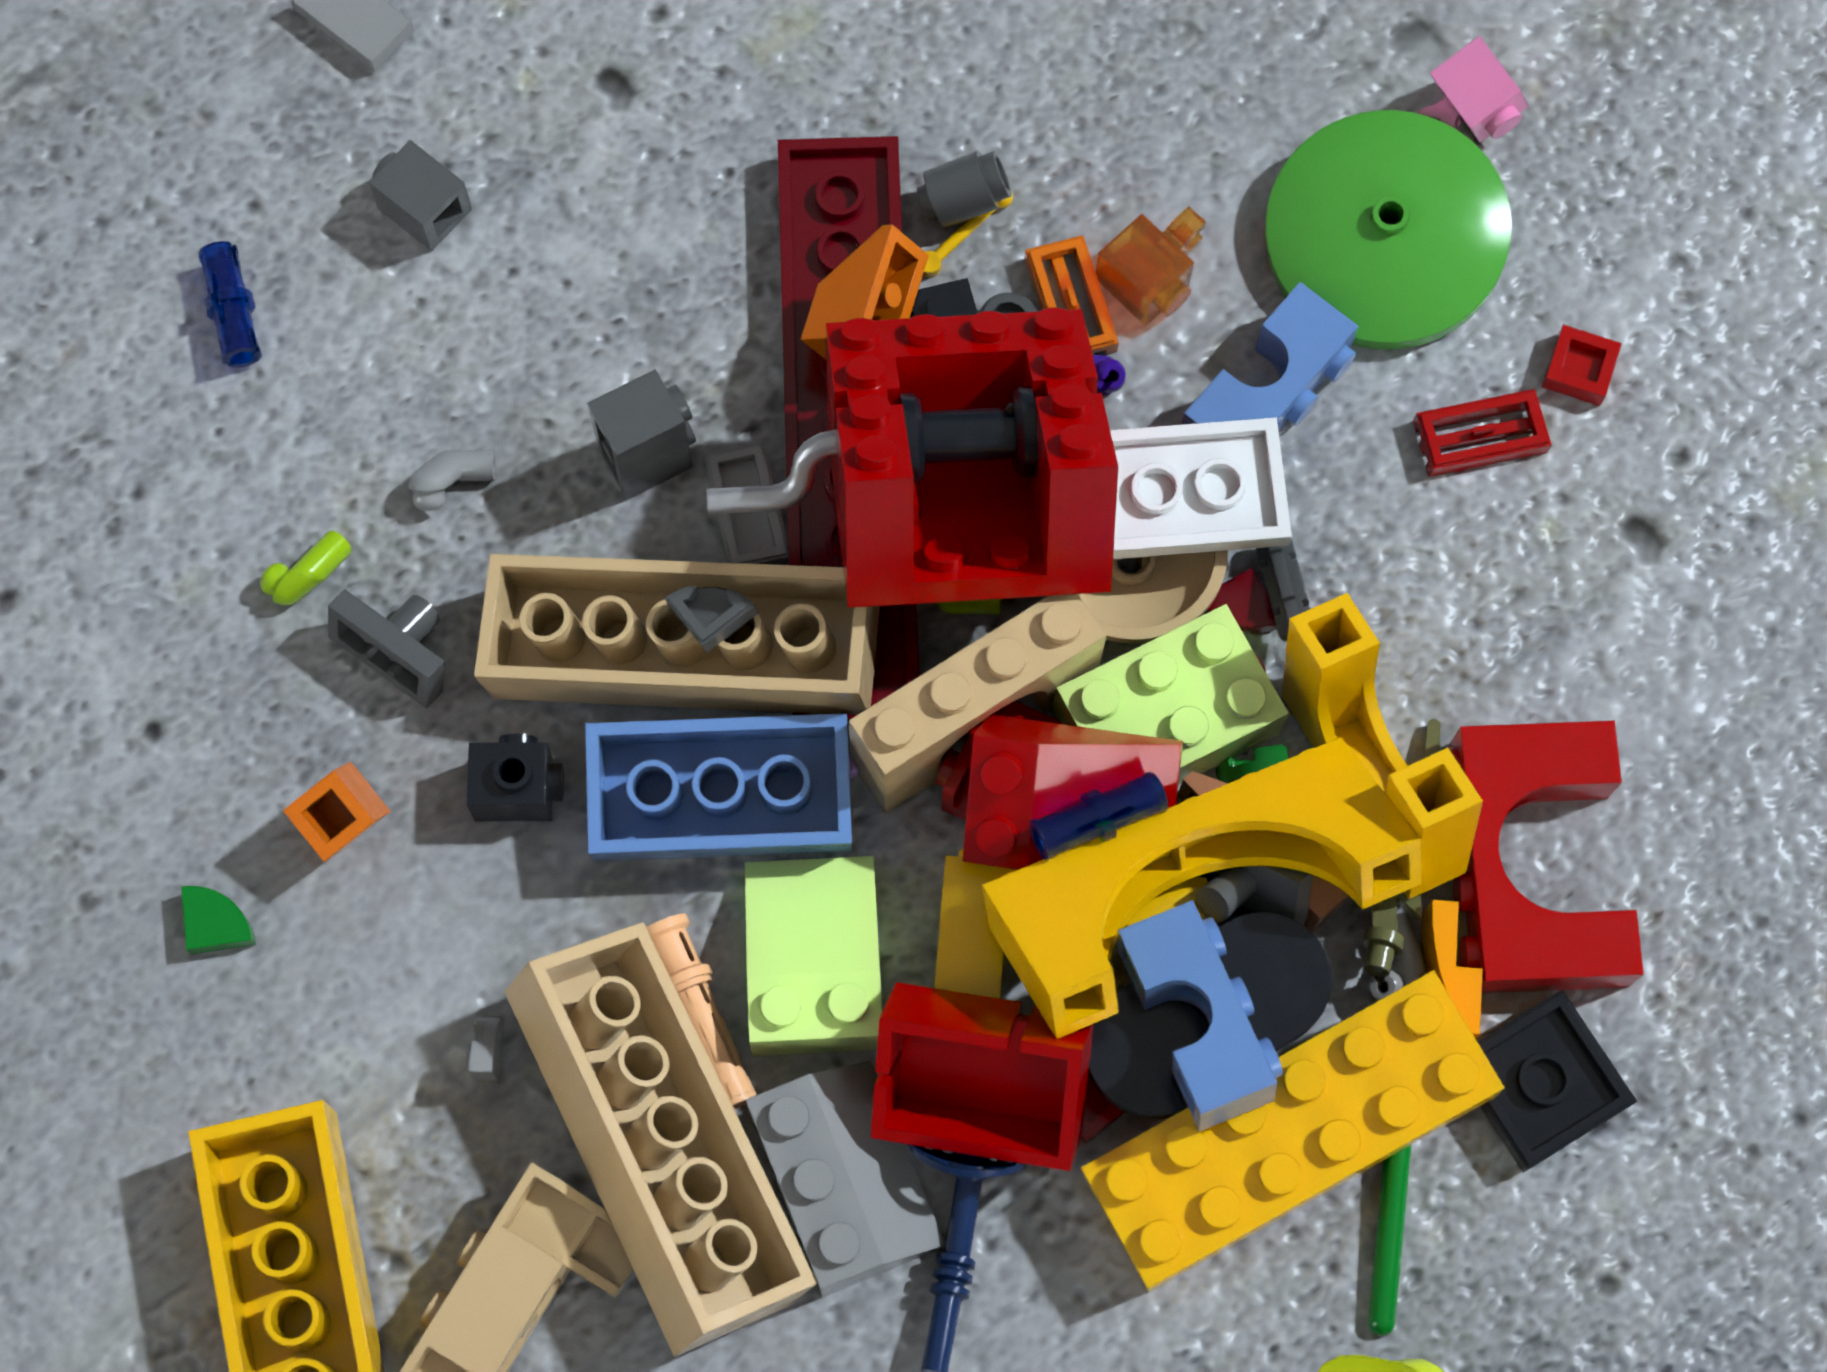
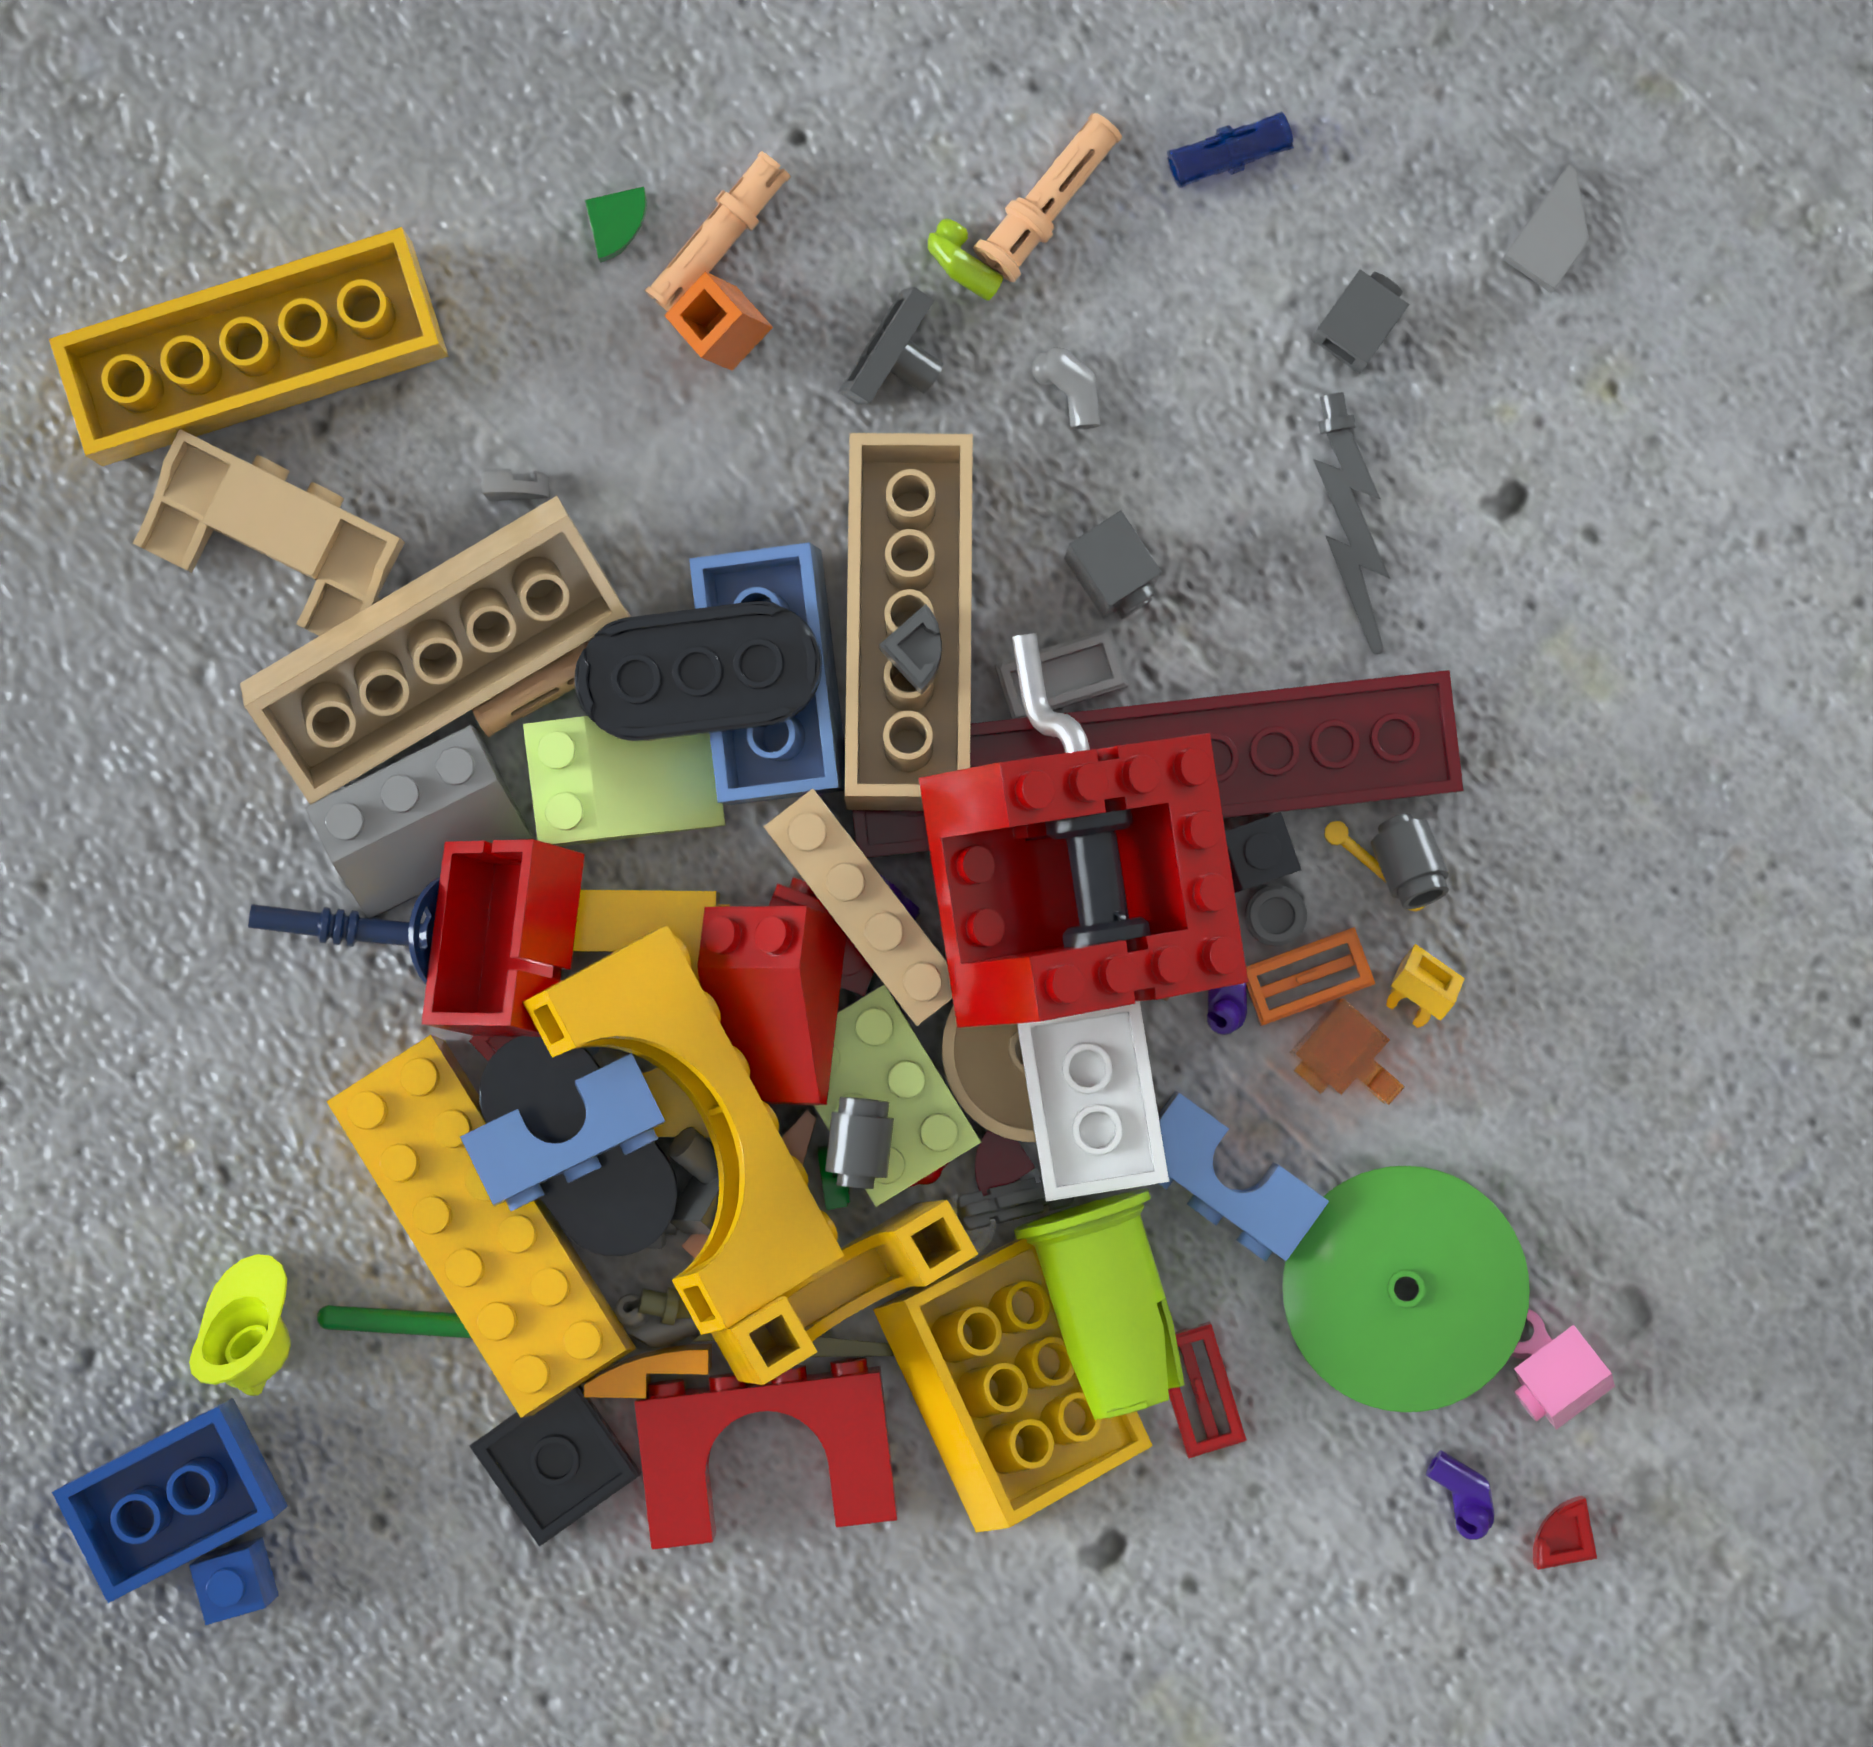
camera: 80 degrees right, 15 degrees up
(223, 794) = (720, 230): none -> light nougat pin
(270, 496) = (1031, 218): none -> light nougat pin
(513, 780) = (767, 481): black brick -> none
(582, 232) = (1339, 488): none -> dark grey piece
(710, 848) = (698, 671): none -> black tile
(871, 283) = (1267, 772): orange slope -> none
(1084, 187) = (1427, 984): none -> yellow tile
(1098, 815) = (741, 1029): clear blue pin -> none
(1223, 710) = (859, 1142): none -> dark grey brick
(1392, 493) = (1109, 1302): none -> lime piece
(1477, 605) = (1001, 1388): none -> yellow slope
(1581, 365) = (1278, 1487): red tile -> none
(1591, 190) = (1470, 1495): none -> dark purple arm
(1631, 110) = (1565, 1536): none -> red tile

